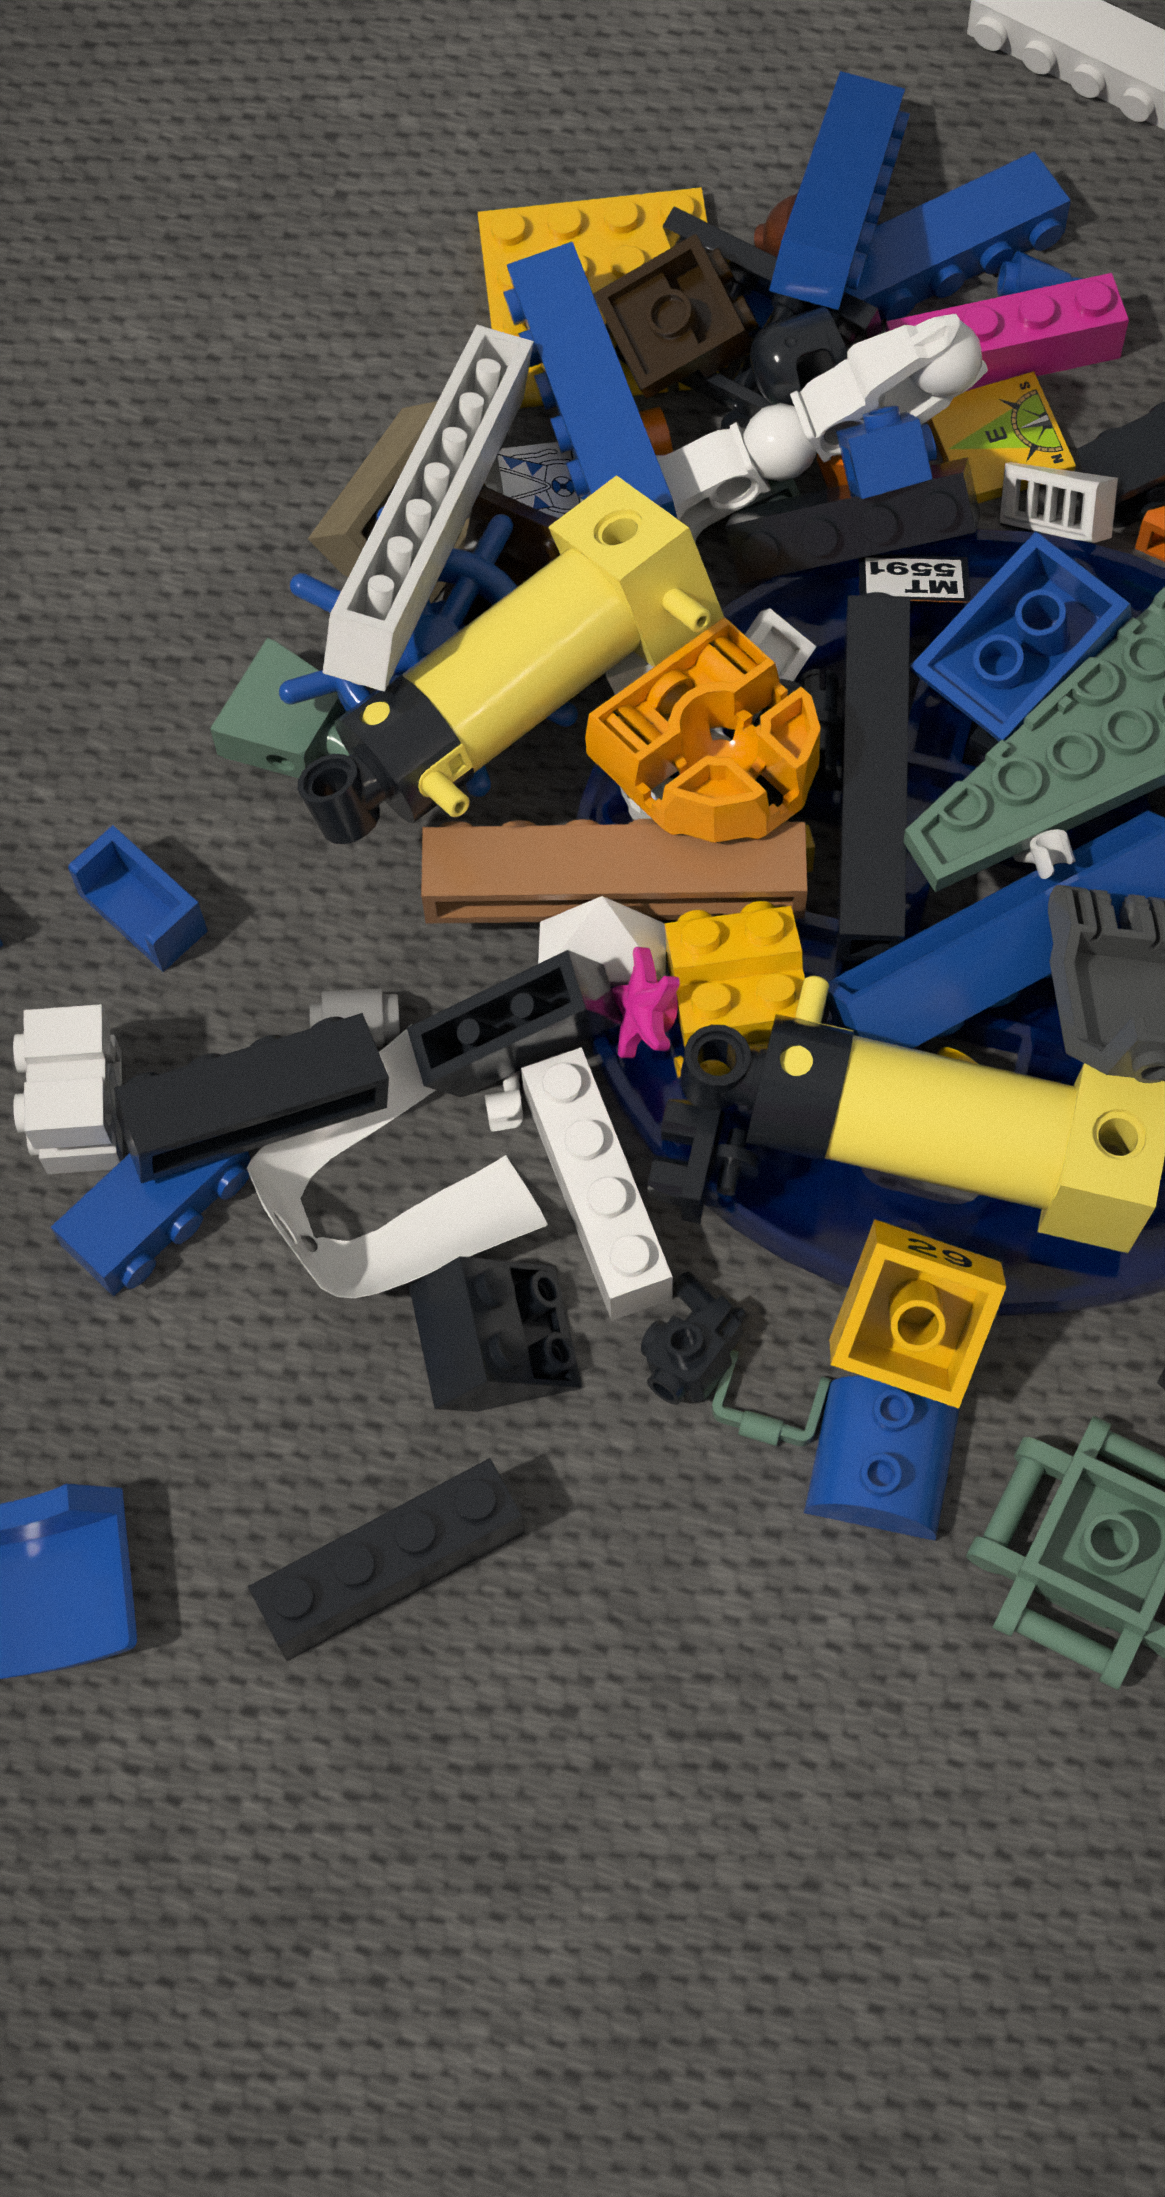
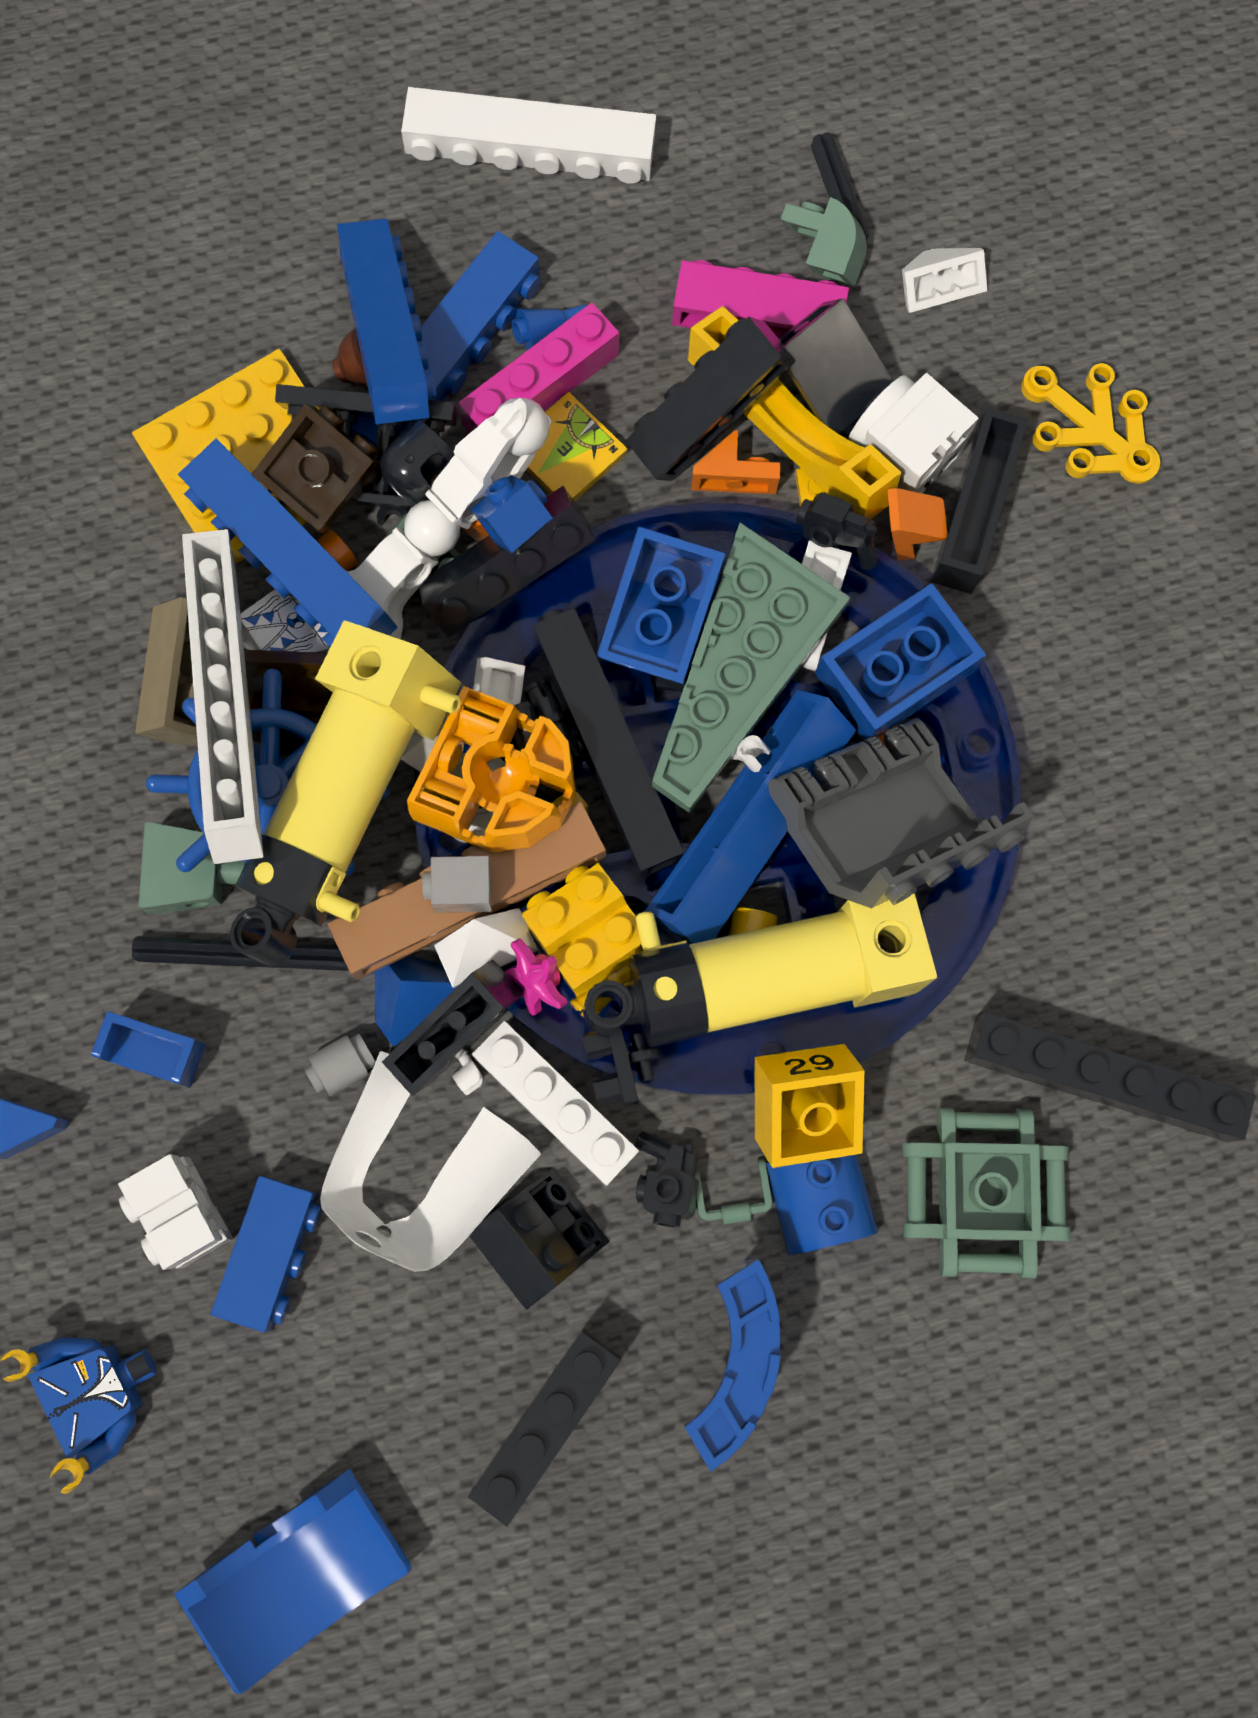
camera: 35 degrees left, 10 degrees up
(251, 1096) = (301, 1163): black brick -> none
(300, 842) = (222, 953): none -> black axle
(473, 964) = (407, 995): none -> blue slope
(604, 844) = (458, 884): none -> light grey brick
(673, 1607) = (750, 1366): none -> blue panel
(916, 577) = (568, 586): sticker -> none
(1097, 503) = (654, 467): white slope -> none

